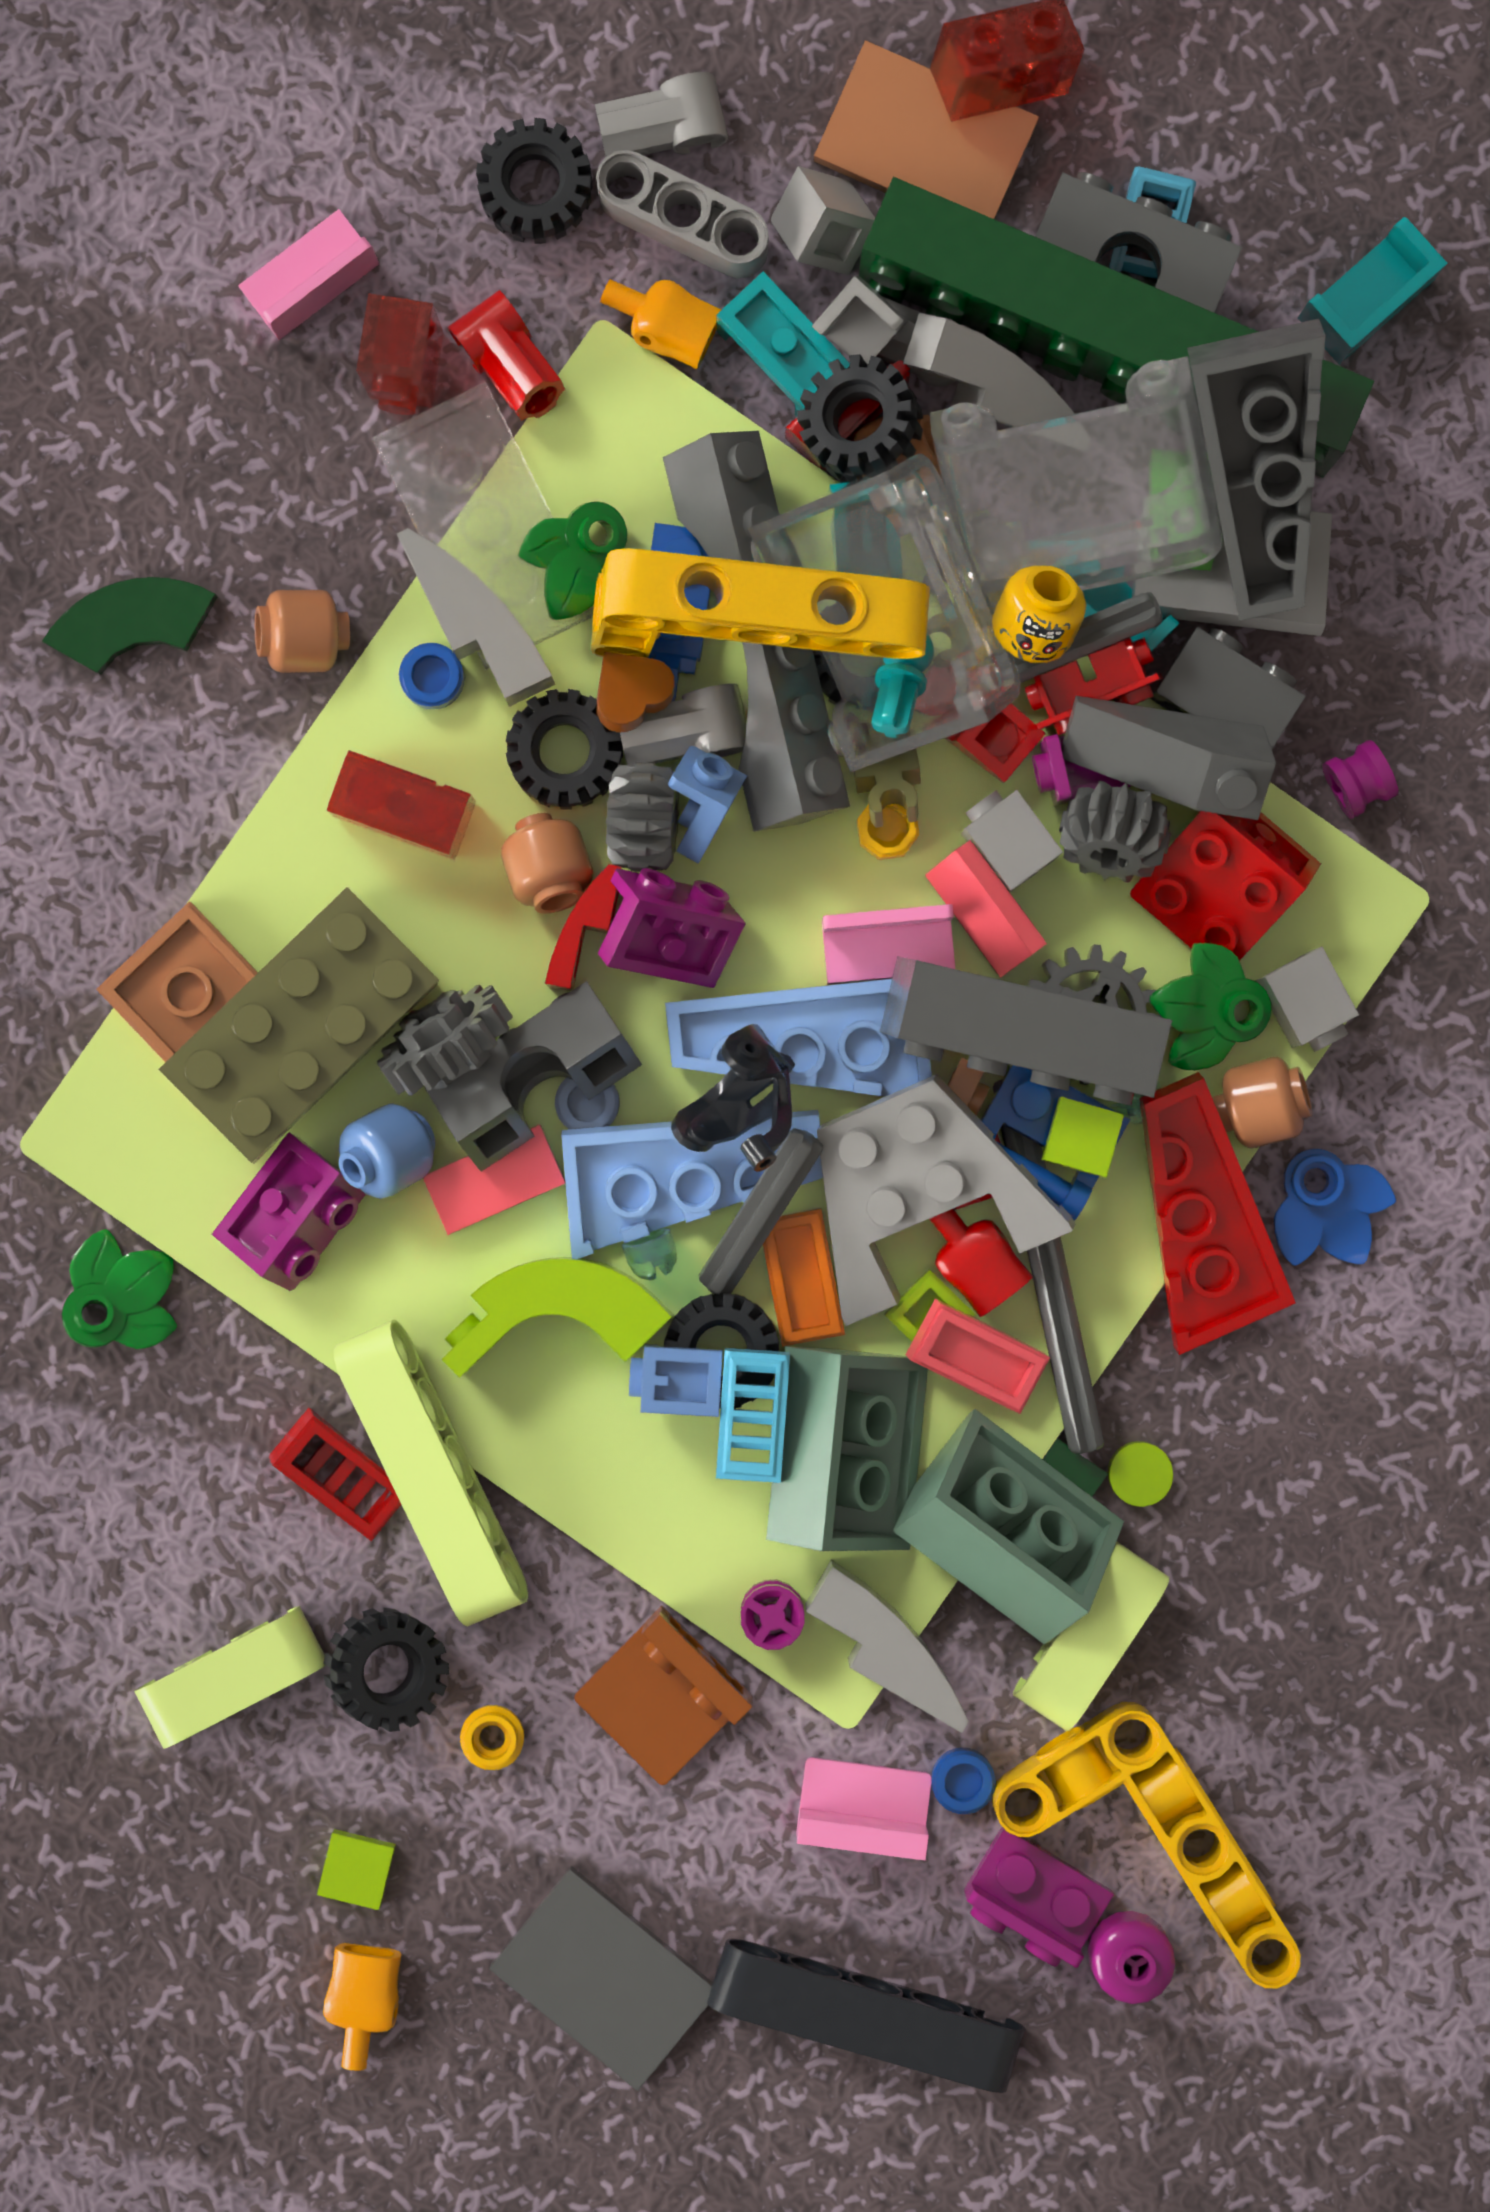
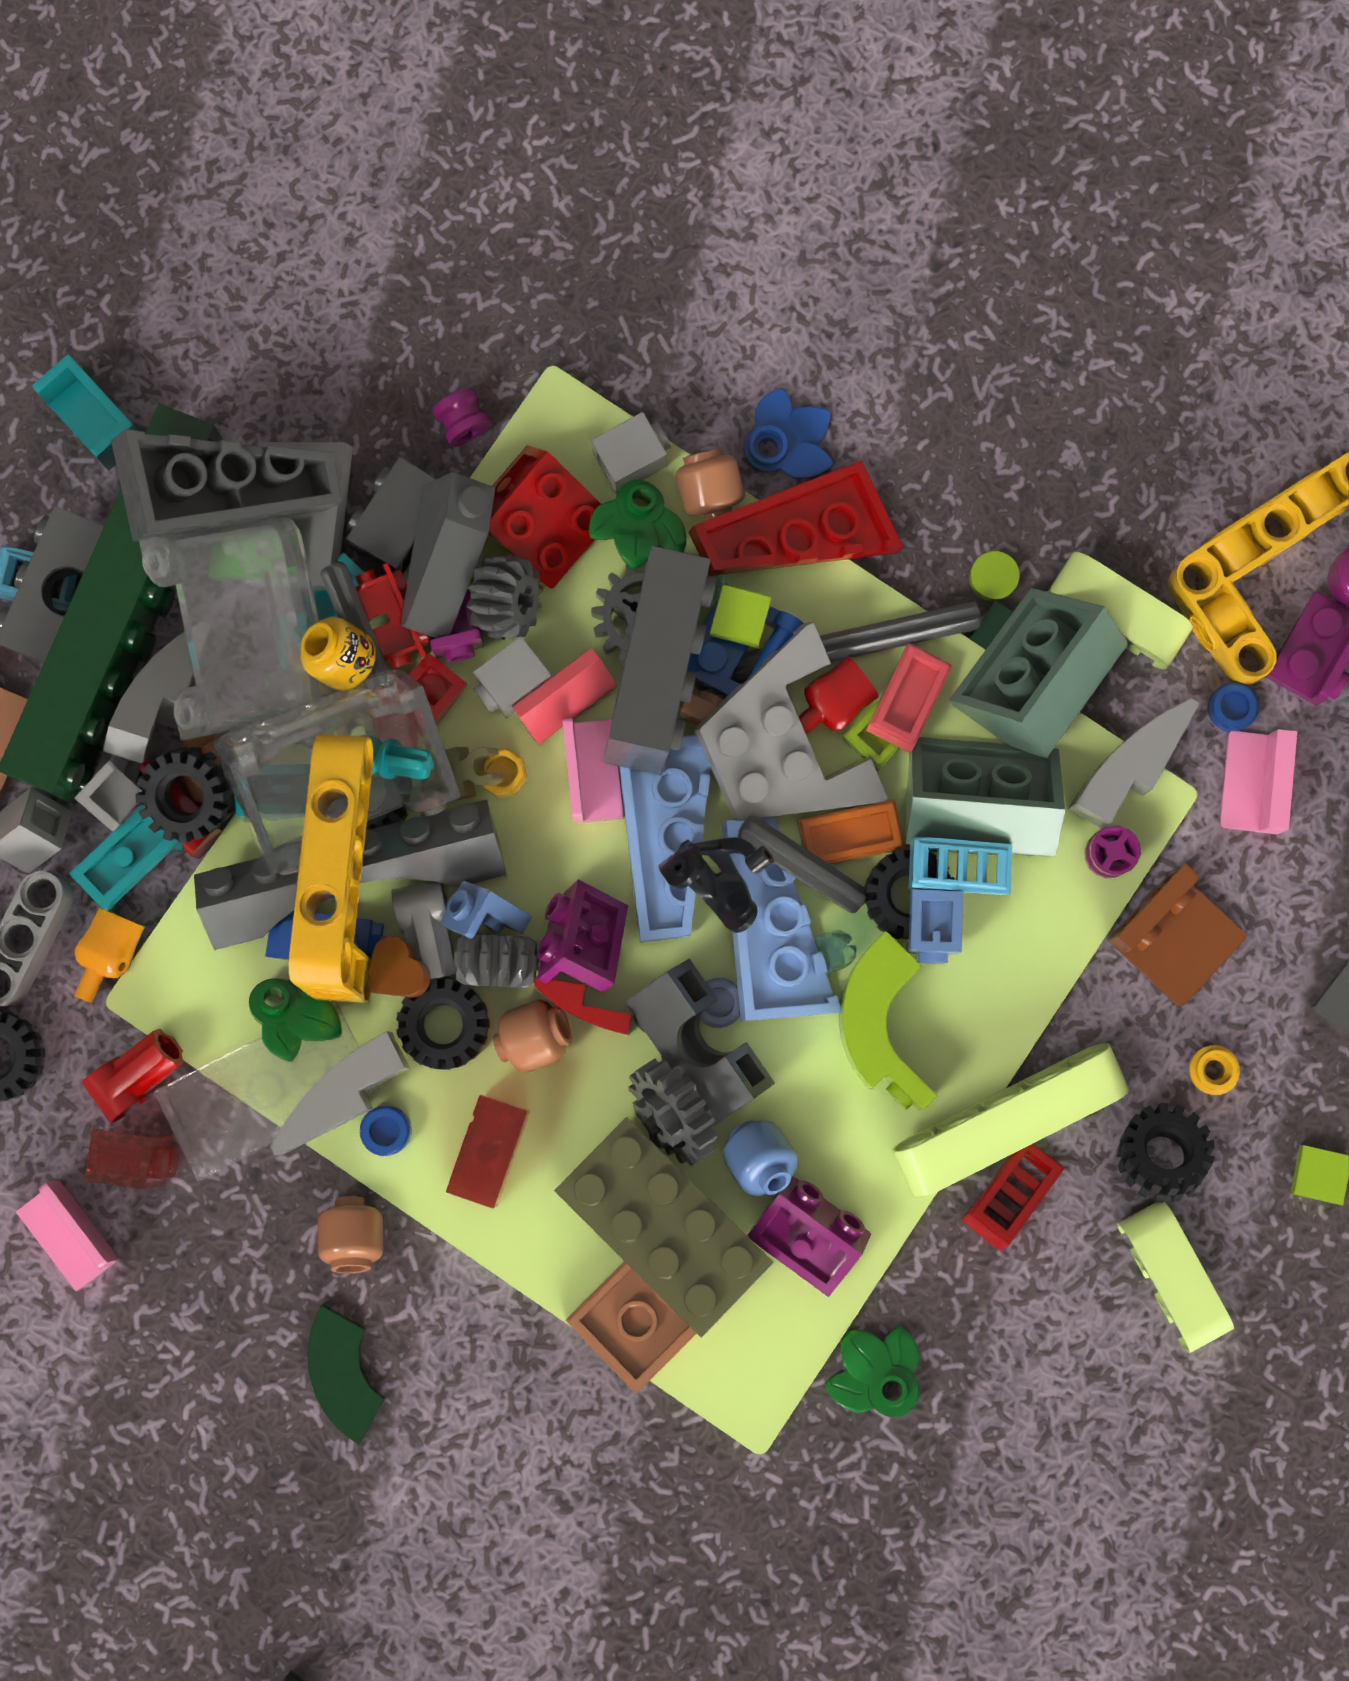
camera: 90 degrees left, 5 degrees down
(469, 1196) = (793, 1093): coral tile -> none

